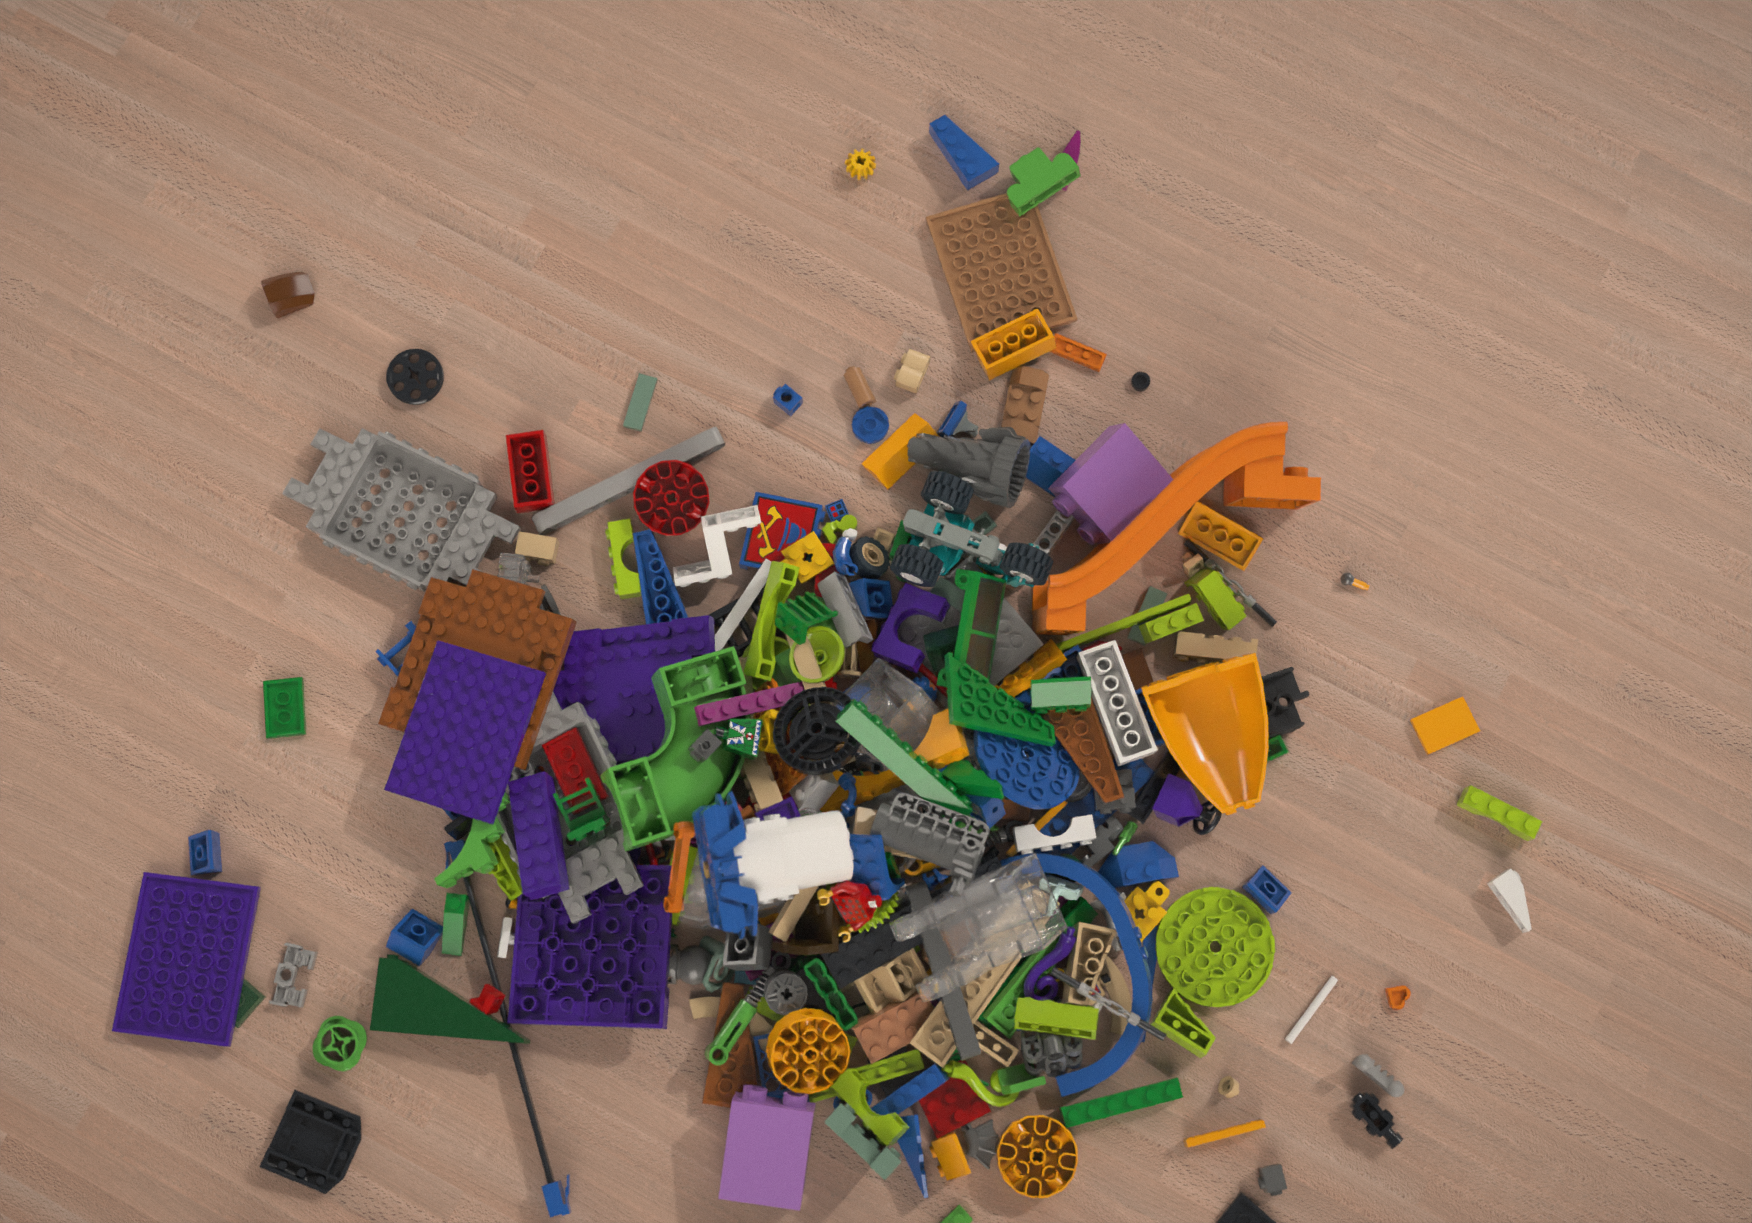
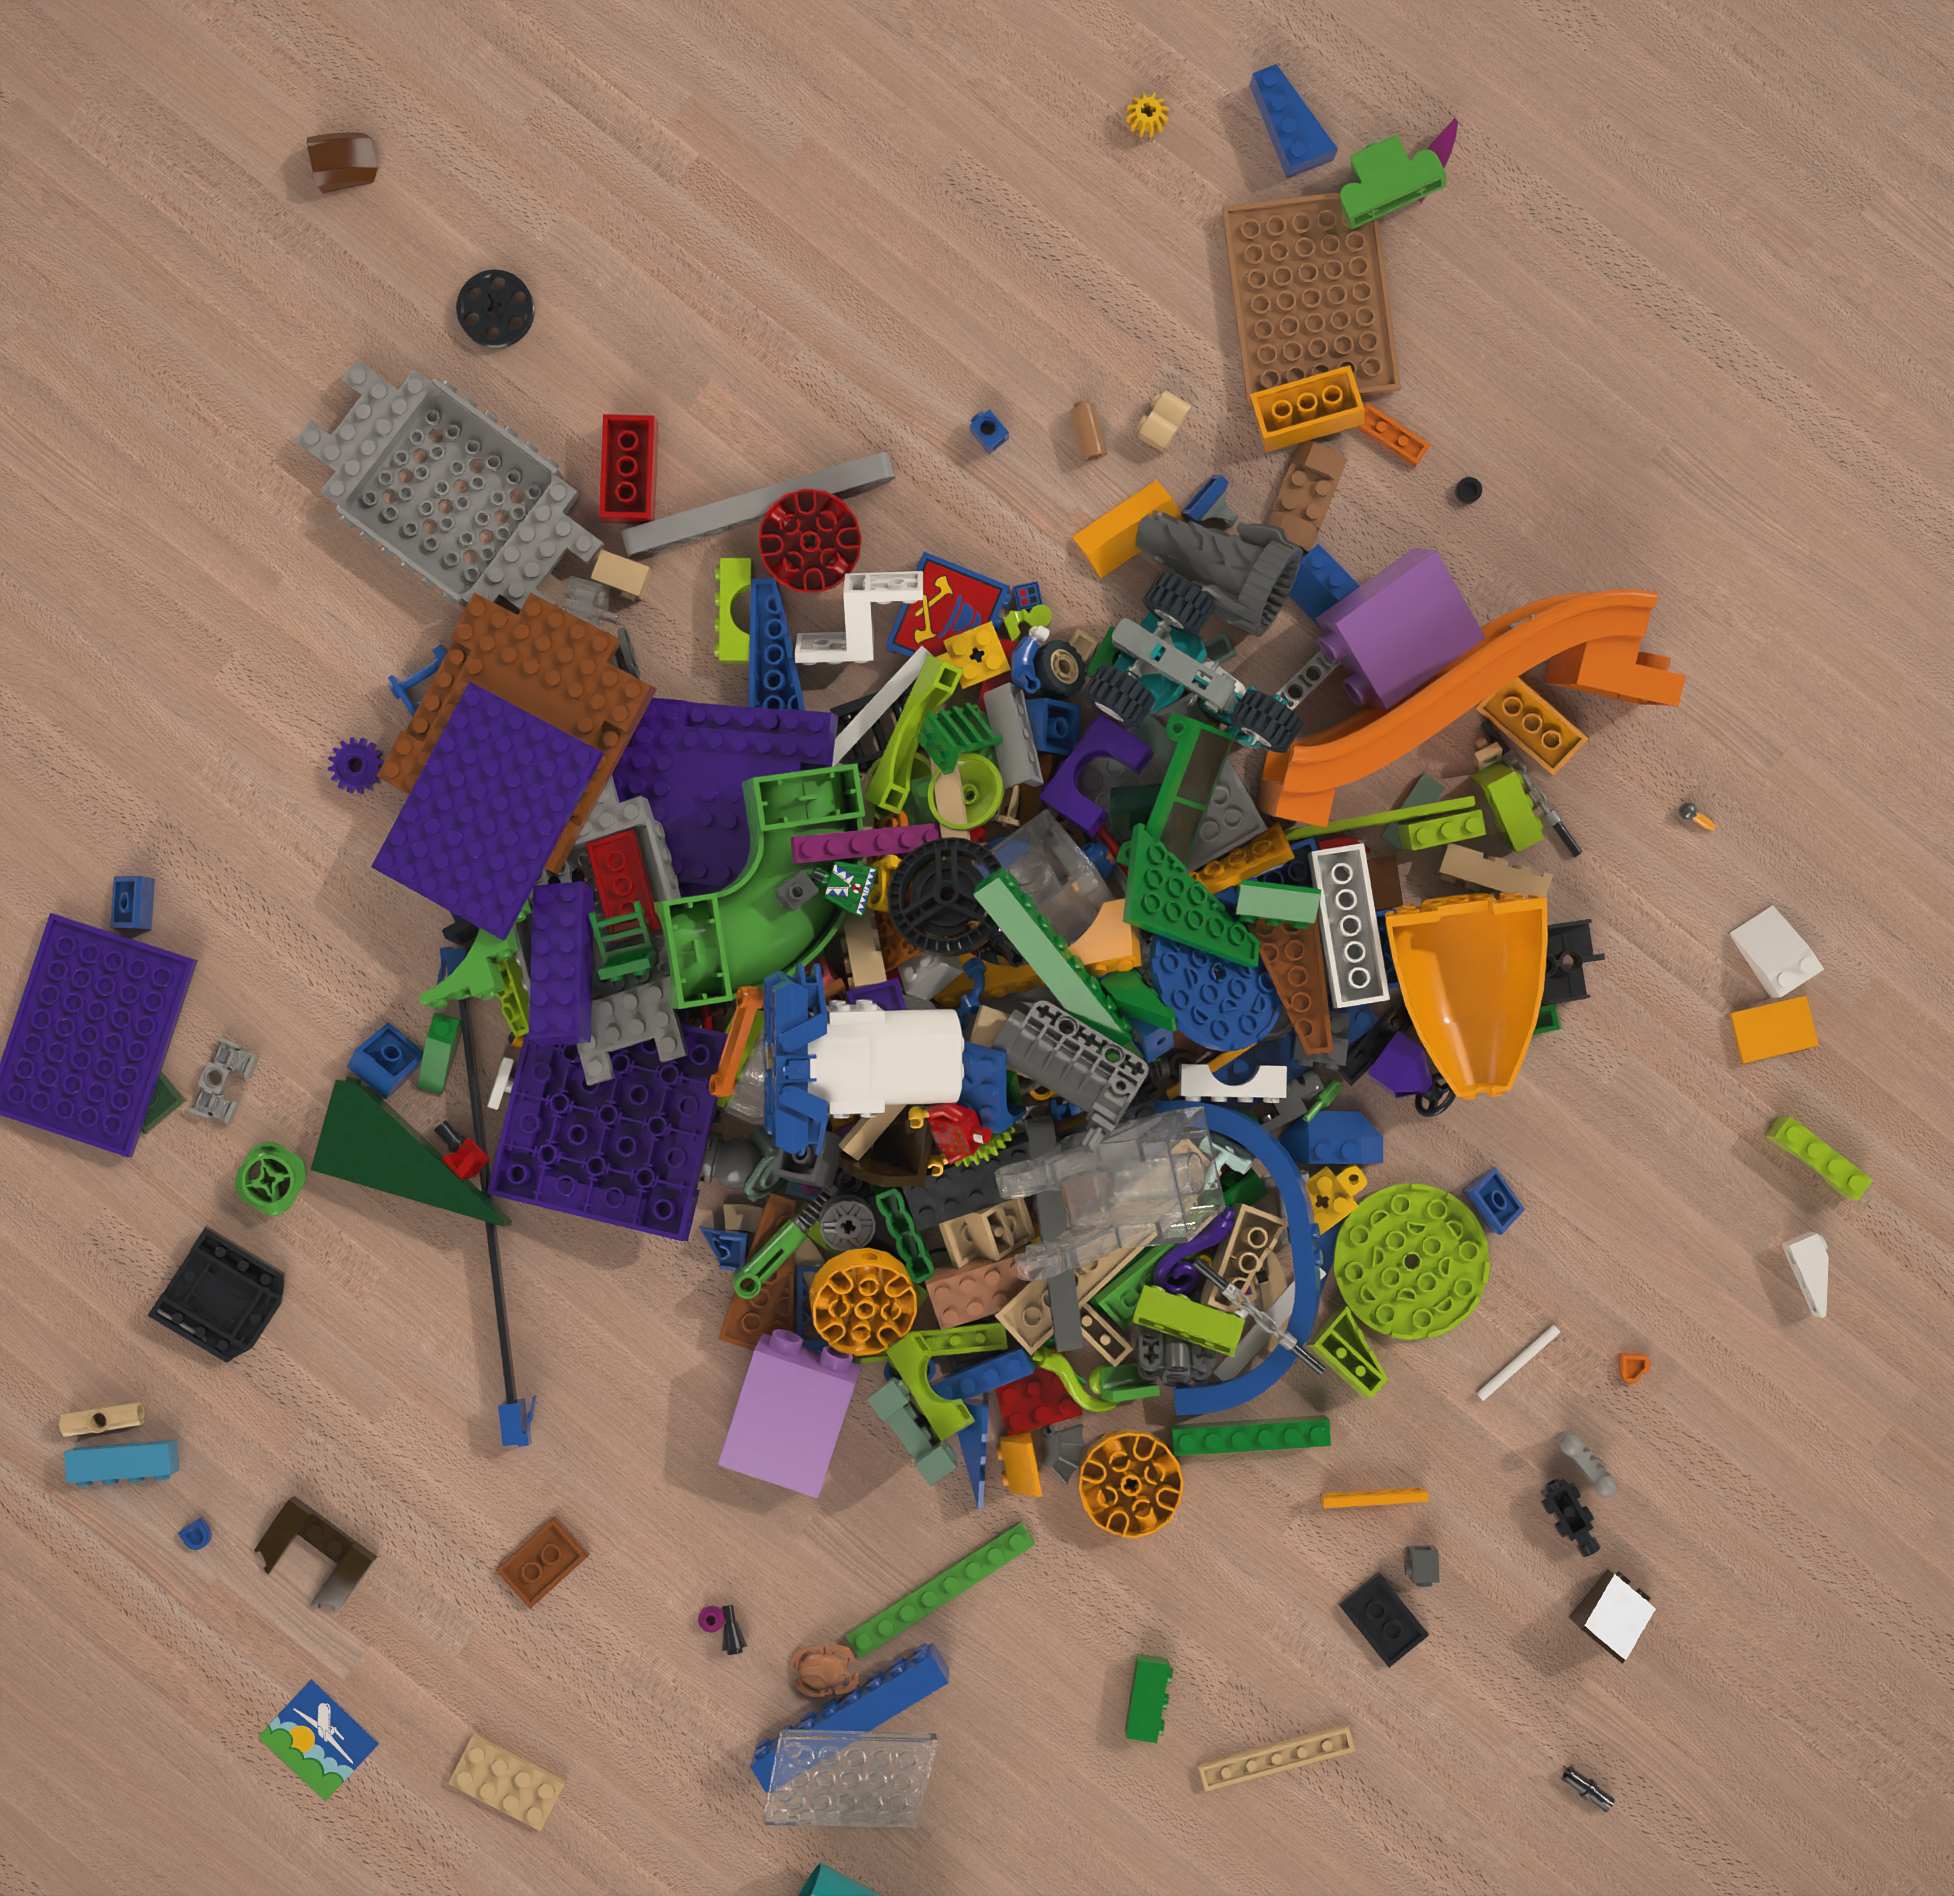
camera: 15 degrees right, 10 degrees up
(284, 707) = (260, 729): green tile -> none
(351, 718) = (344, 761): none -> dark purple gear
(472, 986) = (449, 1136): none -> black pin
(640, 402) = (791, 399): sand green tile -> none
(697, 1031) = (728, 1246): none -> blue slope
(870, 425) = (1093, 485): blue tile -> none
(1111, 1025) = (1258, 1336): none -> white sticker
(1228, 1087) = (1391, 1441): tan tile -> none
(1425, 1189) = (1613, 1614): none -> slope
(1433, 668) = (1775, 952): none -> white slope

